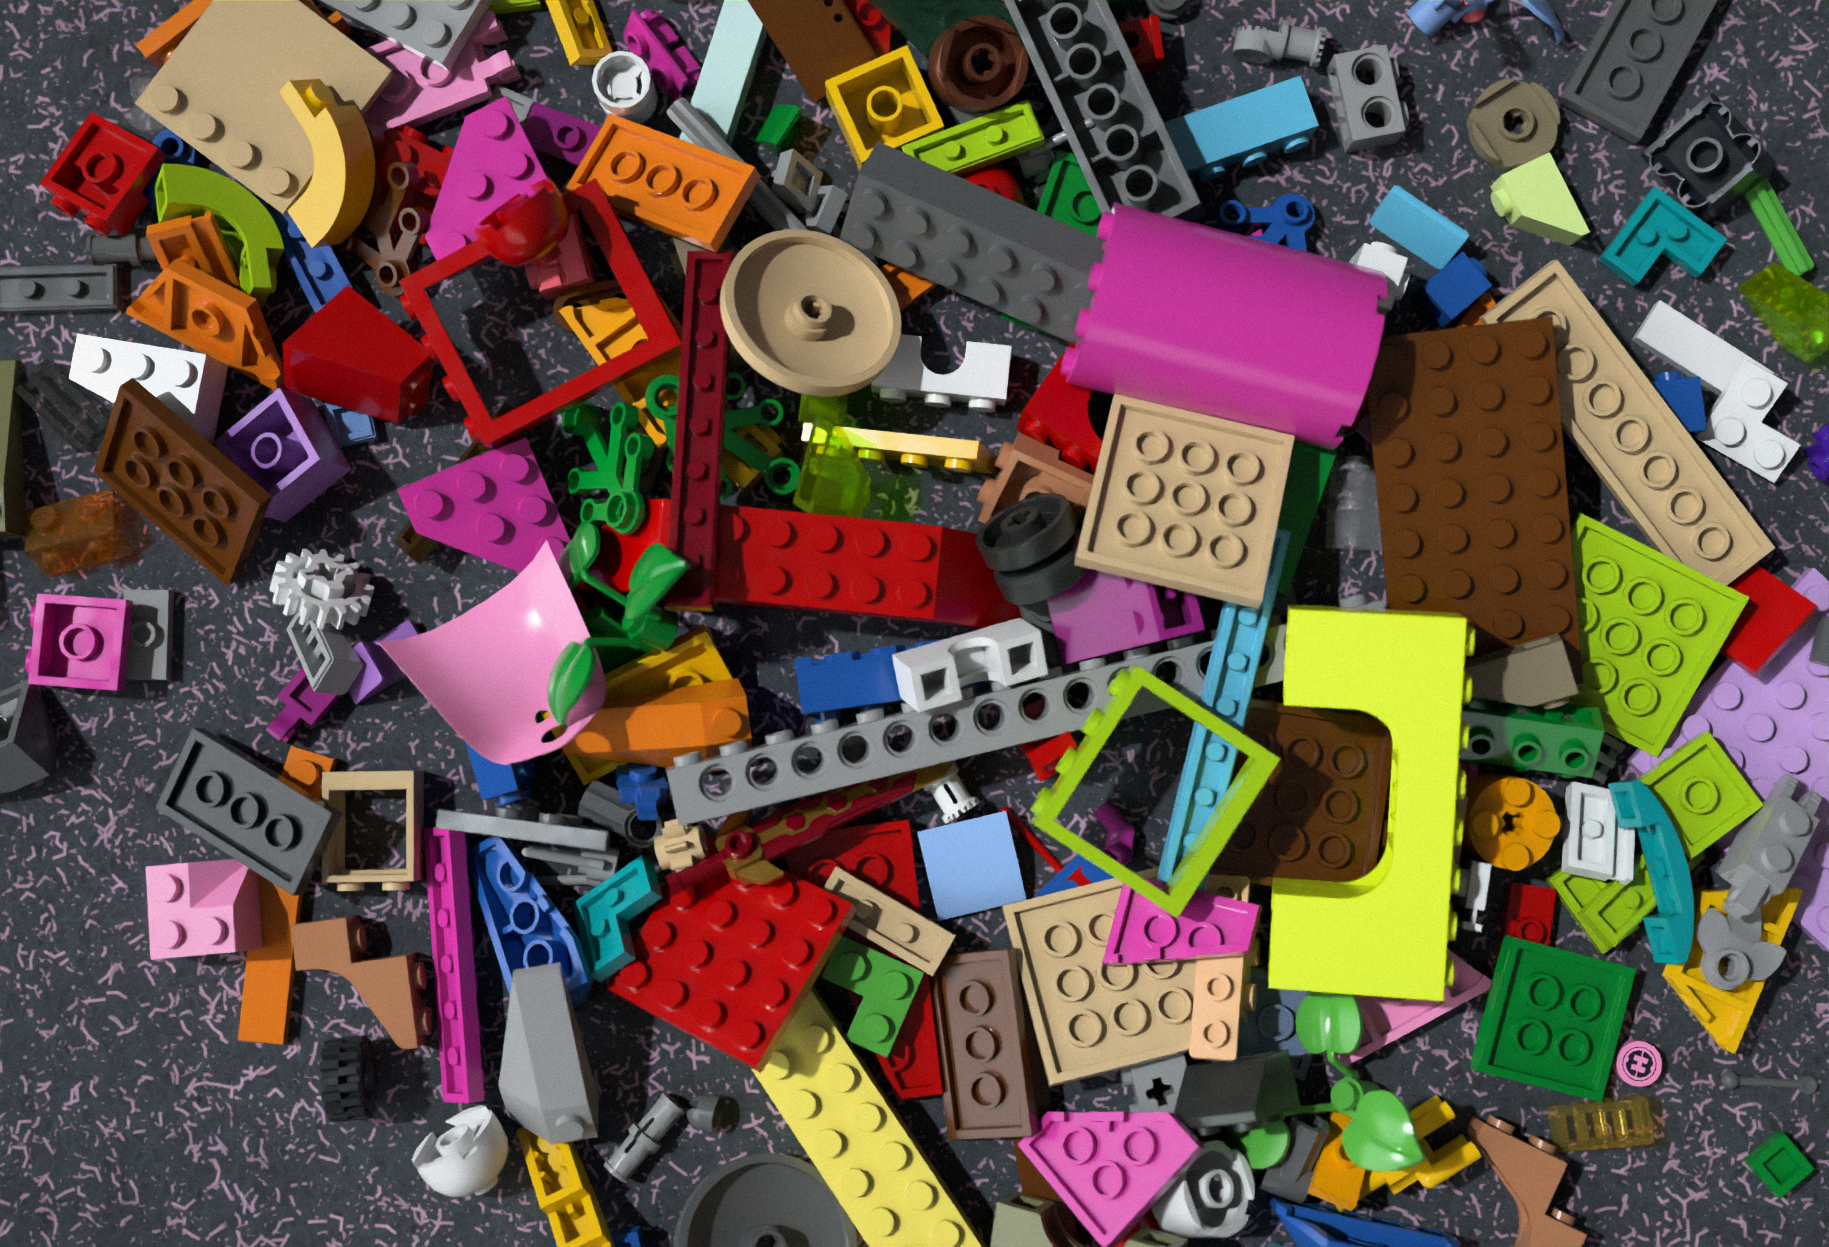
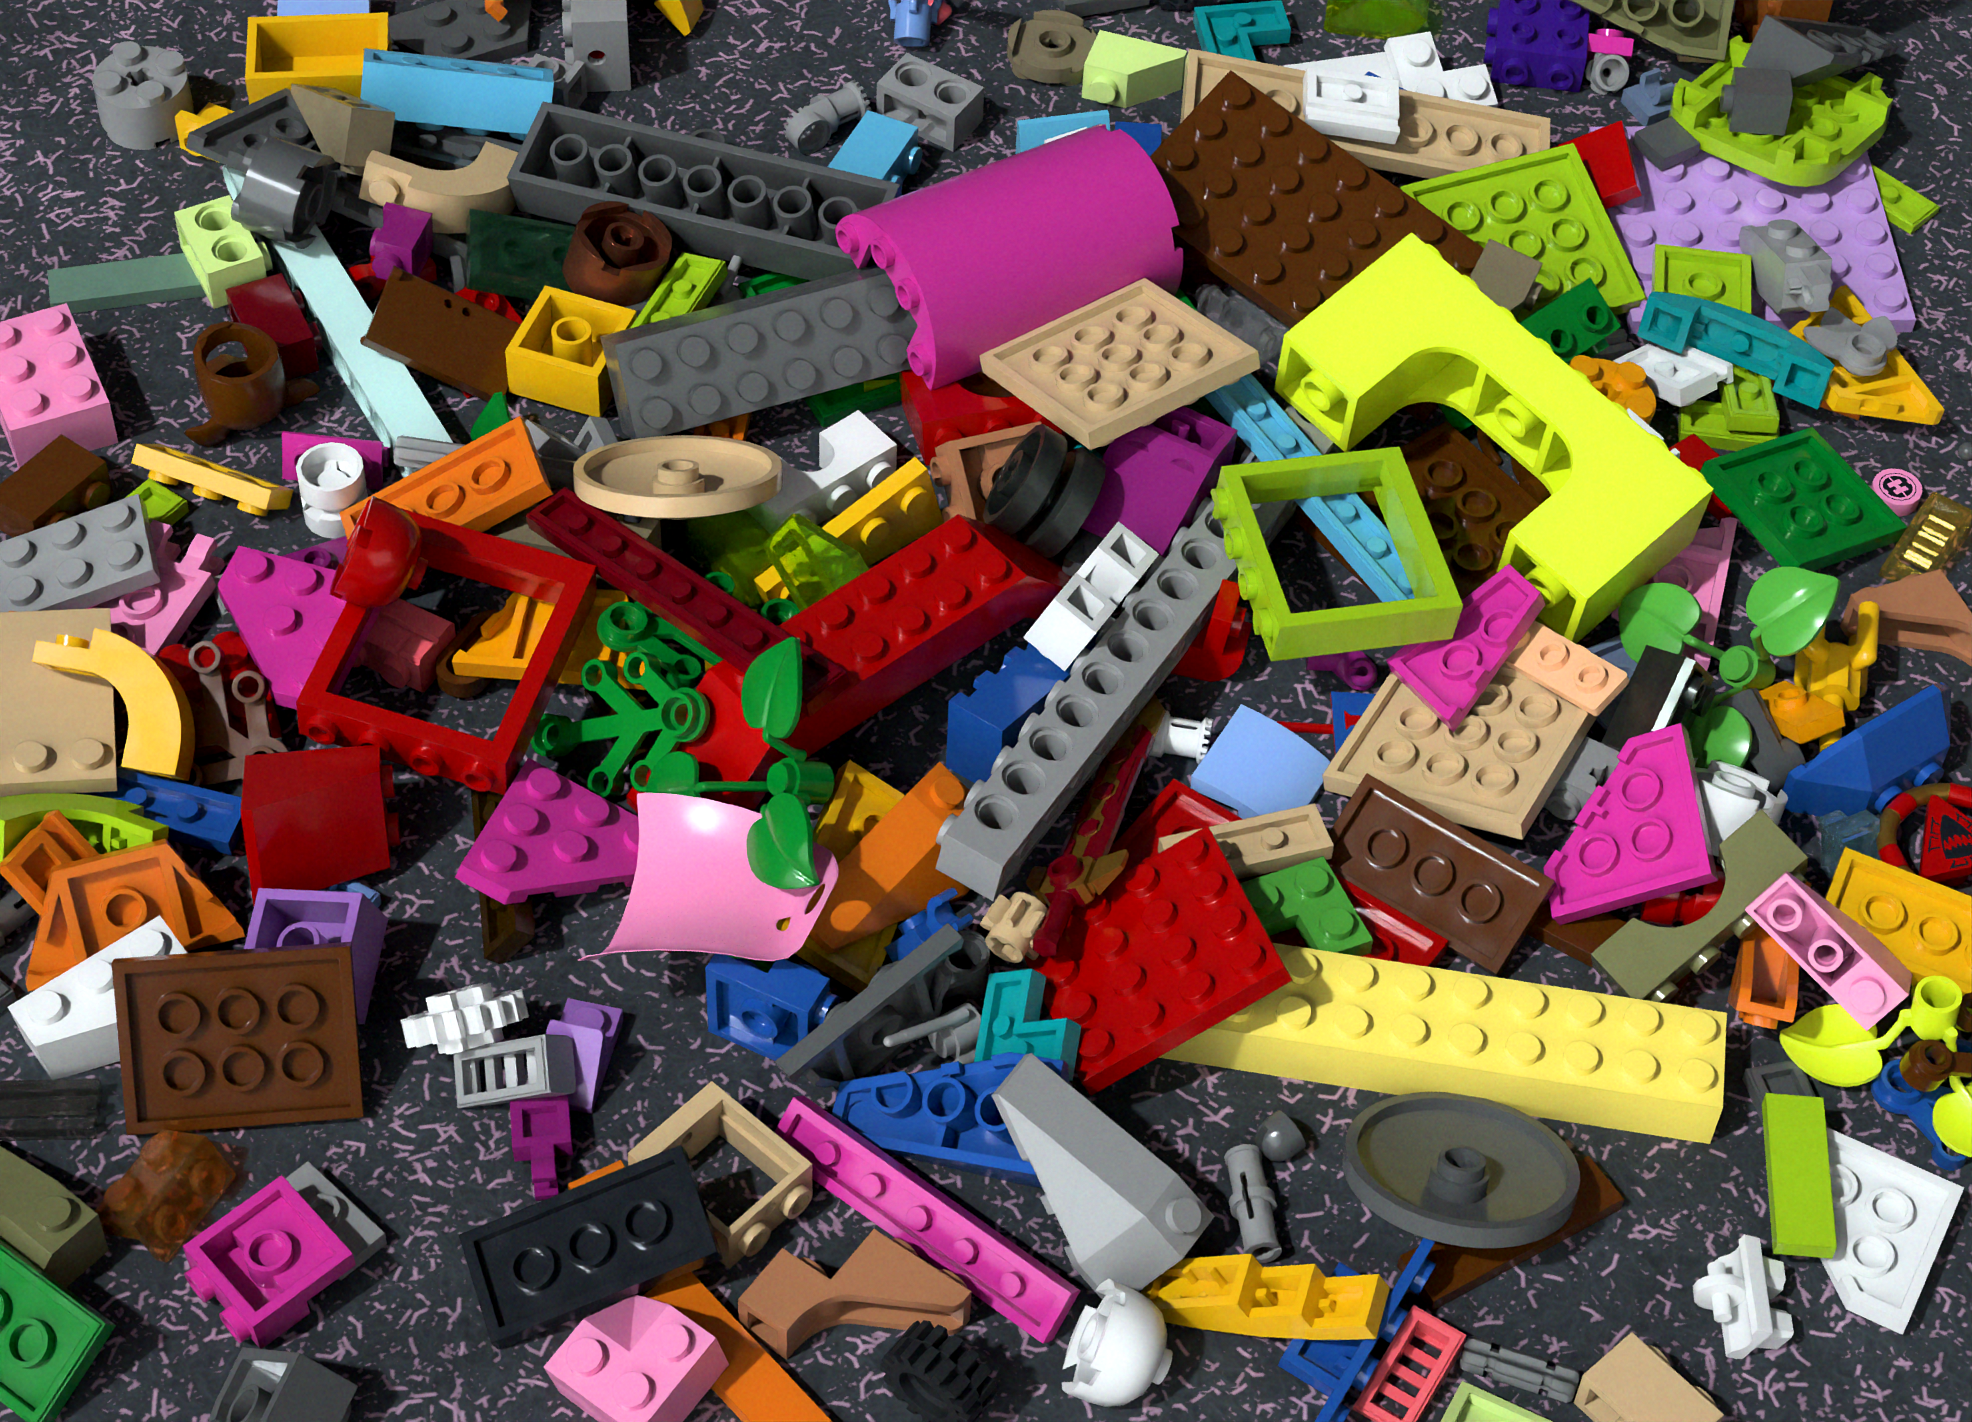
camera: 50 degrees left, 35 degrees down
(1618, 419) = (1351, 105): none -> white plate

